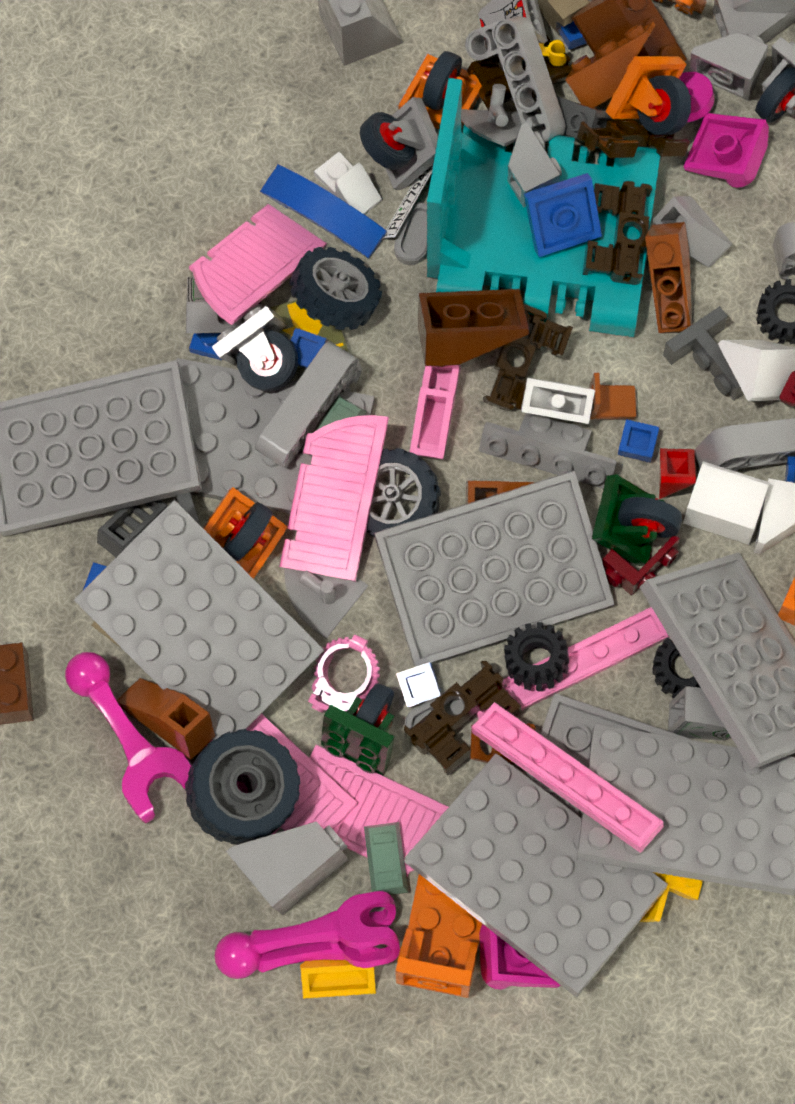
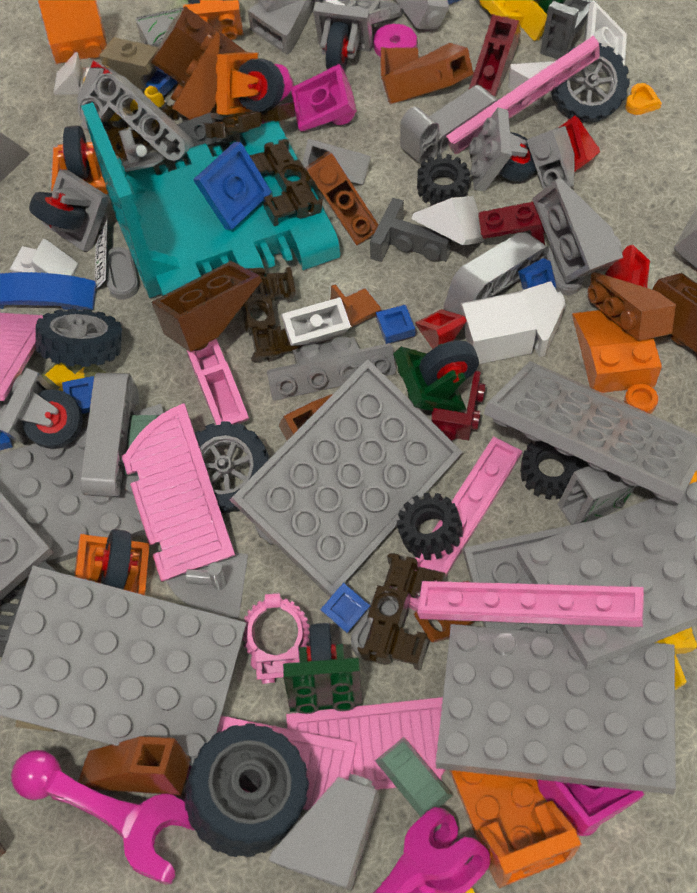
camera: 30 degrees left, 10 degrees down
(530, 165) = (182, 168): light grey slope -> none
(731, 62) = (289, 41): light grey slope -> none

